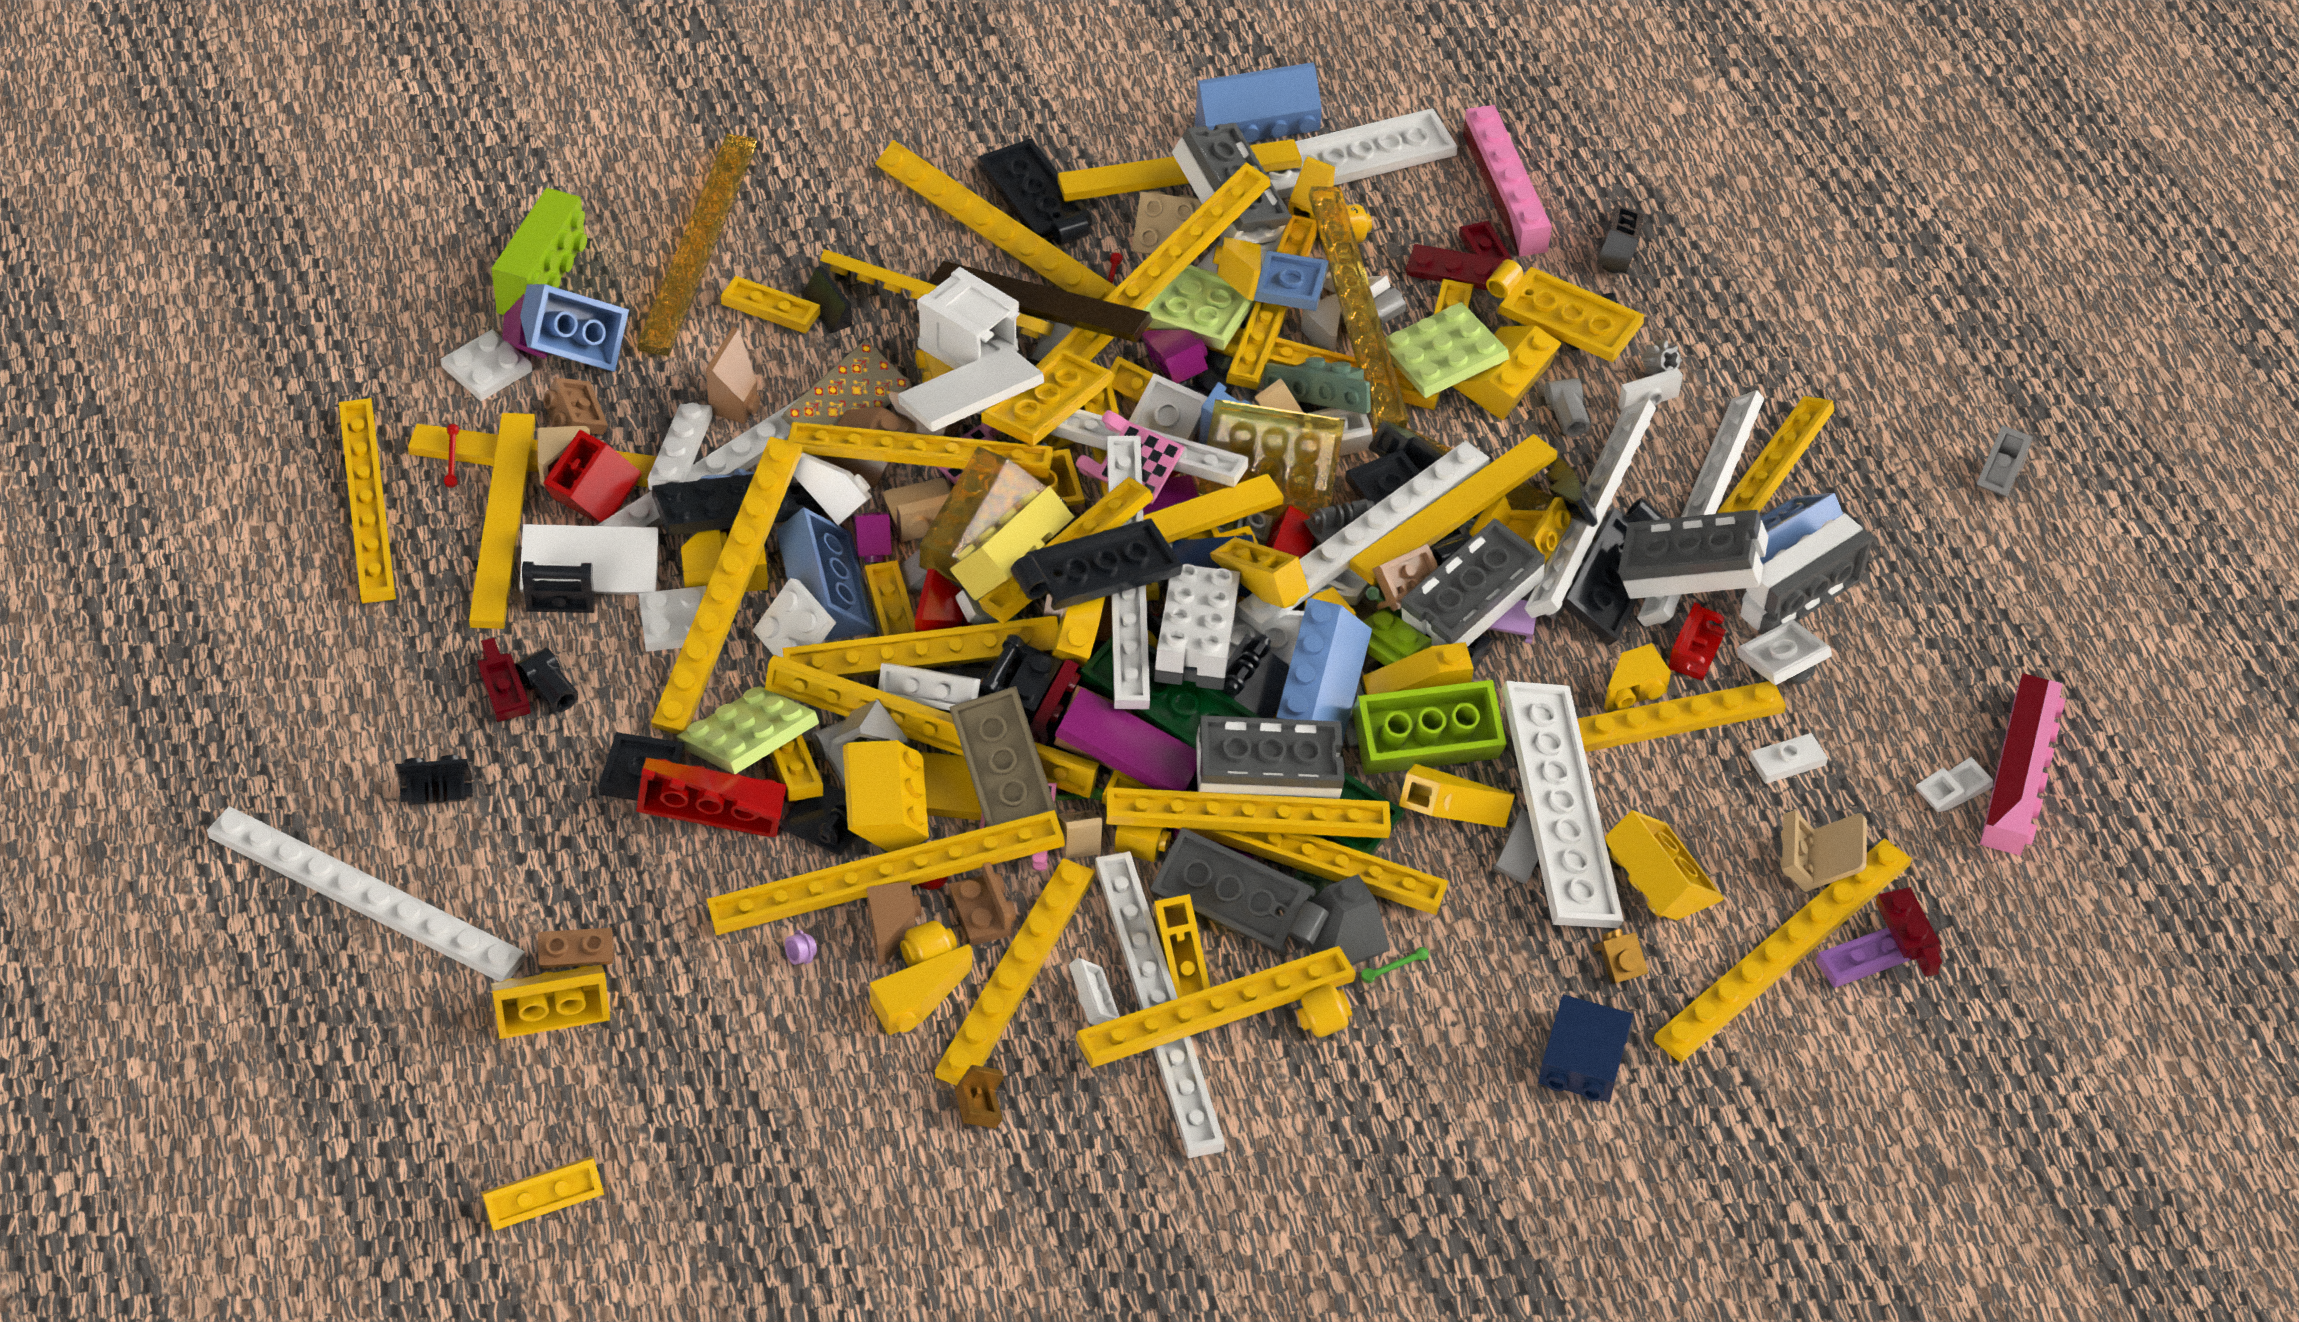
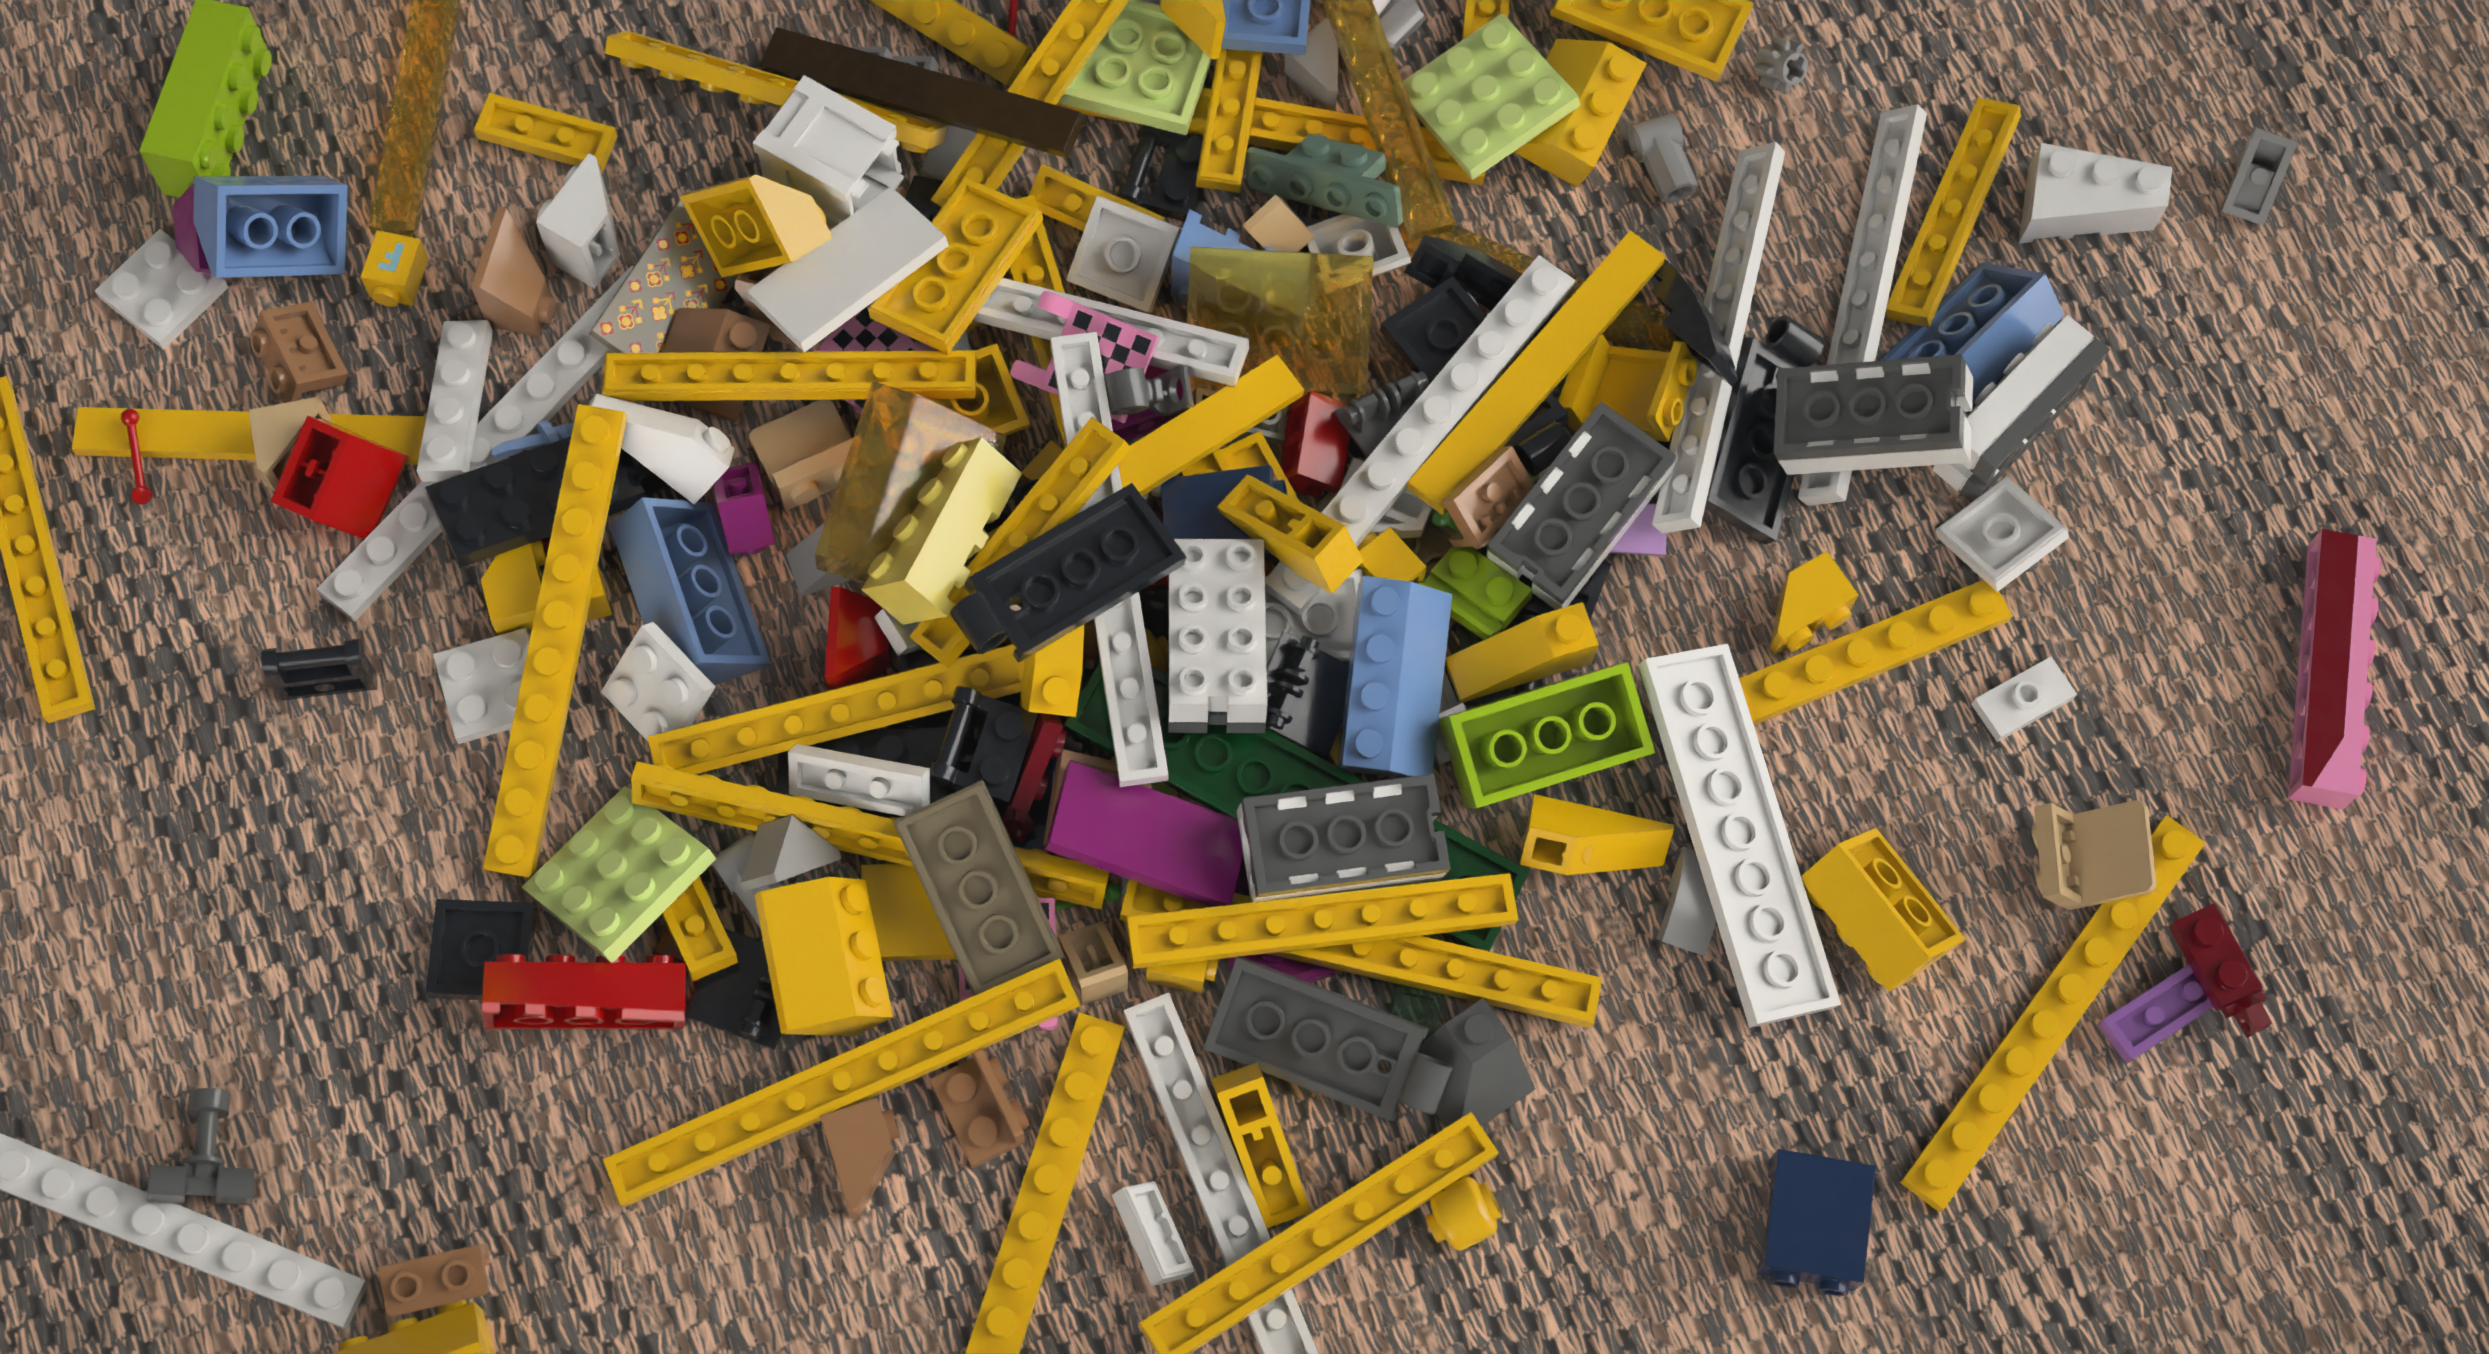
camera: 10 degrees left, 20 degrees up
(424, 869) = (203, 1171): none -> dark grey bar
(449, 770) = (172, 1017): black hinge -> none
(502, 521) = (224, 558): yellow tile -> none
(502, 683) = (265, 834): dark red hinge -> none
(544, 675) = (323, 815): black piece -> none
(620, 556) = (387, 604): white tile -> none
(651, 368) = (394, 269): none -> yellow brick
(785, 354) = (580, 225): none -> white slope
(800, 948) = (743, 1215): lavender plate -> none
(834, 306) = (620, 109): black slope -> none
(890, 598) = (786, 621): yellow plate -> none
(909, 352) = (755, 223): none -> yellow slope
(914, 992) = (906, 1271): yellow slope -> none
(927, 942) = (917, 1192): yellow head -> none
(1160, 479) = (1131, 393): none -> dark grey leg
(1176, 353) = (1123, 151): magenta slope -> none
(1368, 975) = (1512, 1135): bright green hinge -> none
(1621, 956) = (1843, 1059): pearl gold bracket -> none
(1655, 387) = (1772, 117): white plate -> none
(1697, 643) = (1883, 530): red hinge -> none
(1880, 460) = (2091, 193): none -> white wedge
(1952, 787) = (2247, 712): white slope -> none

